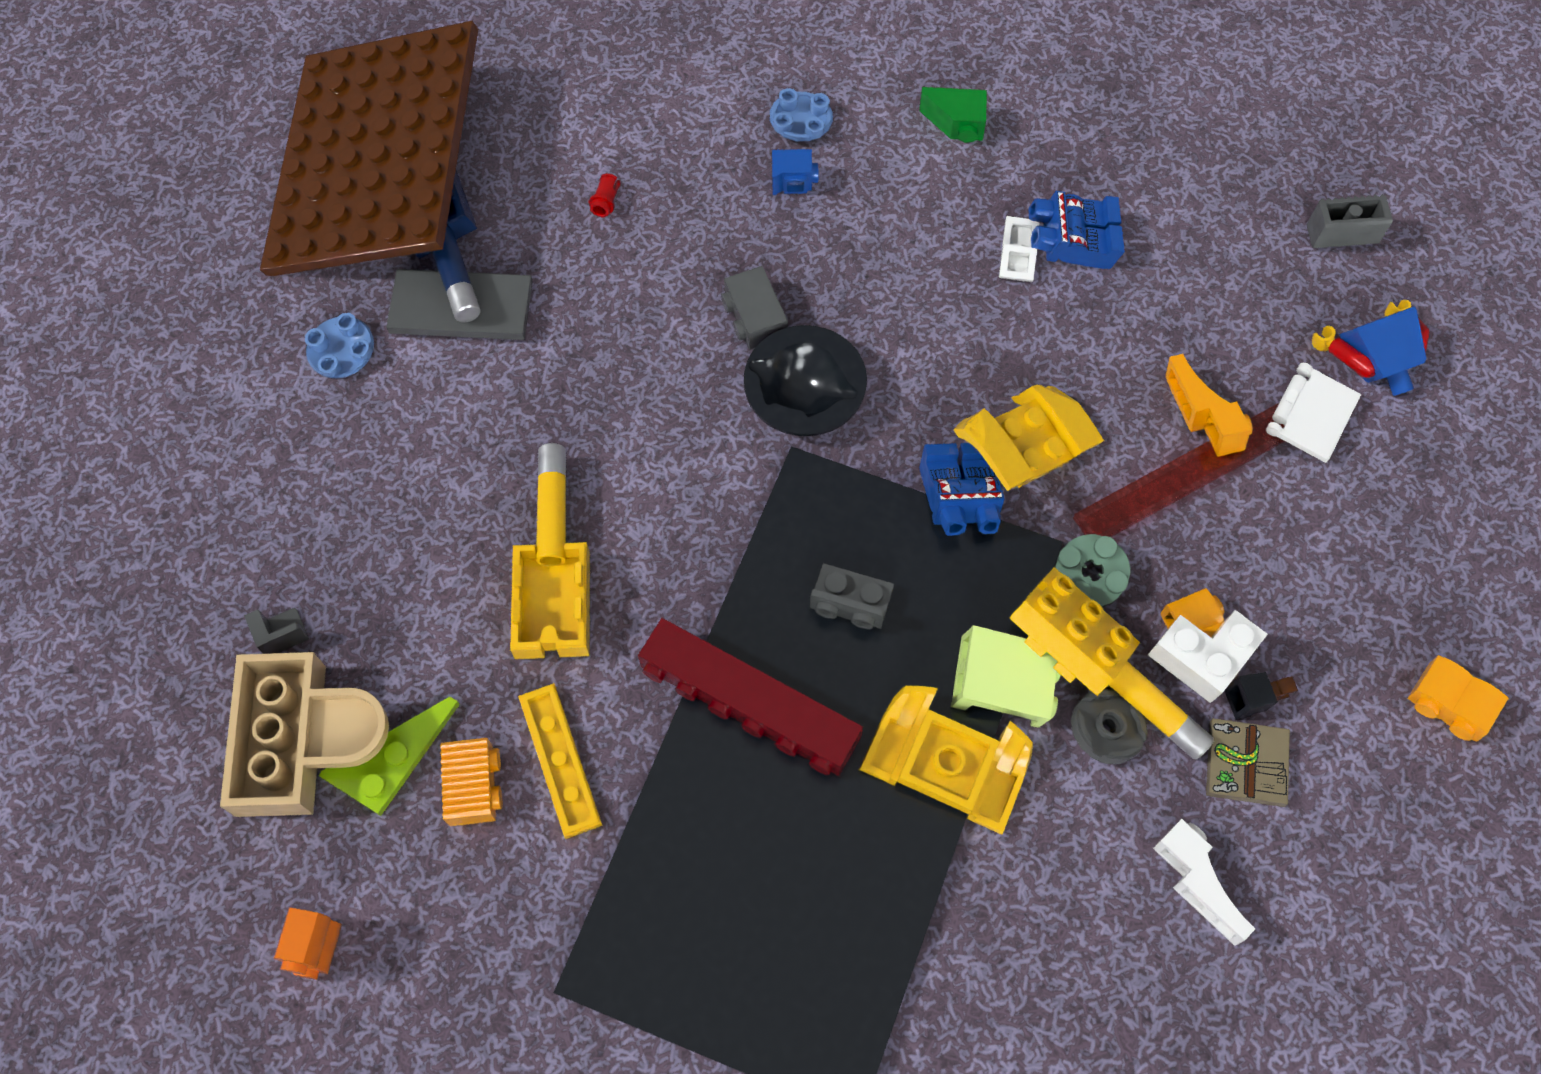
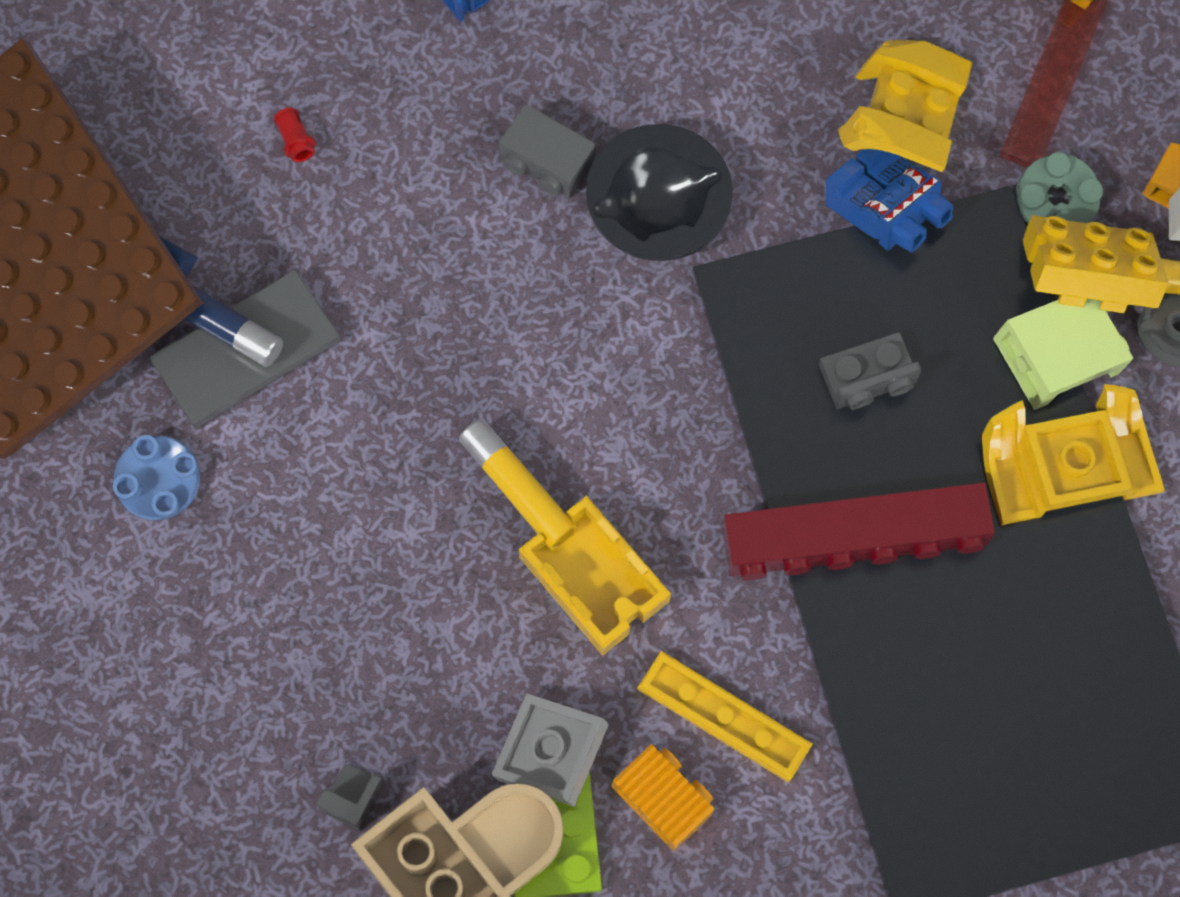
camera: 40 degrees left, 5 degrees up
(422, 693) = (550, 748): none -> light grey plate

